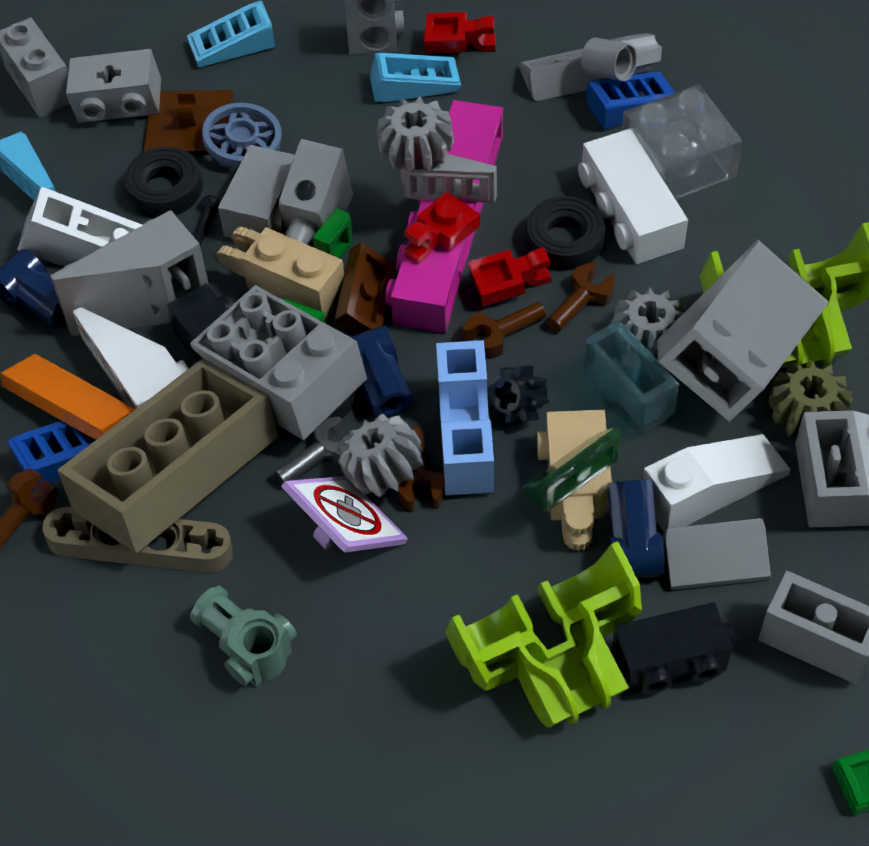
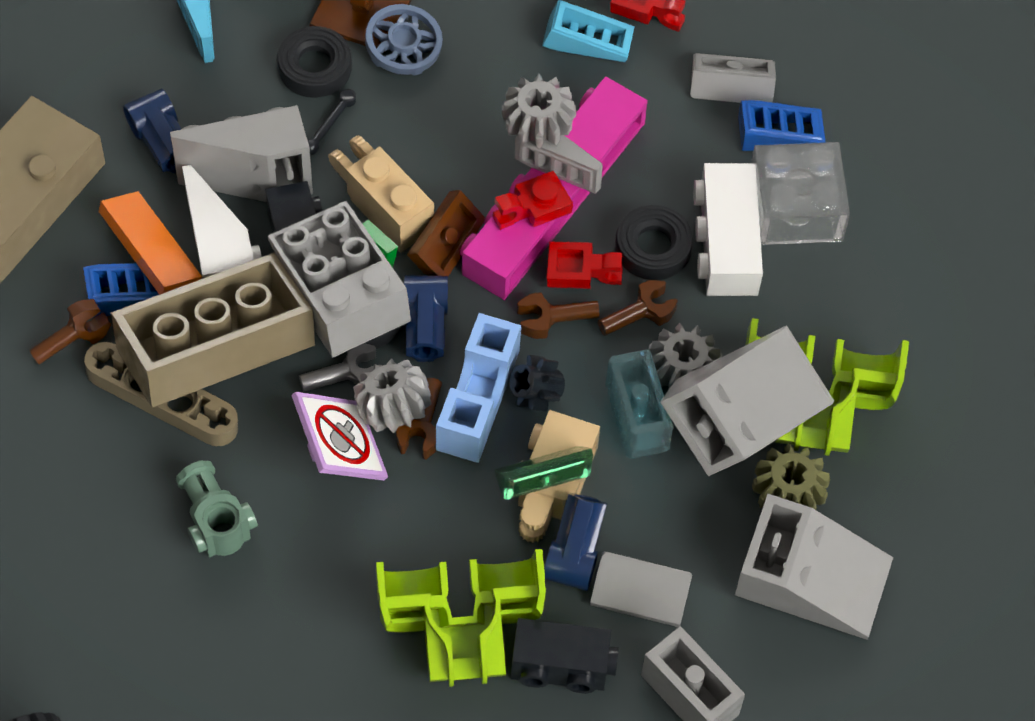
camera: 15 degrees right, 5 degrees up
(69, 229) = (214, 86): white slope -> none
(256, 192) = (395, 108): light grey brick -> none
(314, 189) = (438, 129): light grey torso -> none
(335, 234) = (440, 174): green tile -> none
(620, 56) = (785, 85): light grey piece -> none
(711, 477) = (670, 520): white slope -> none

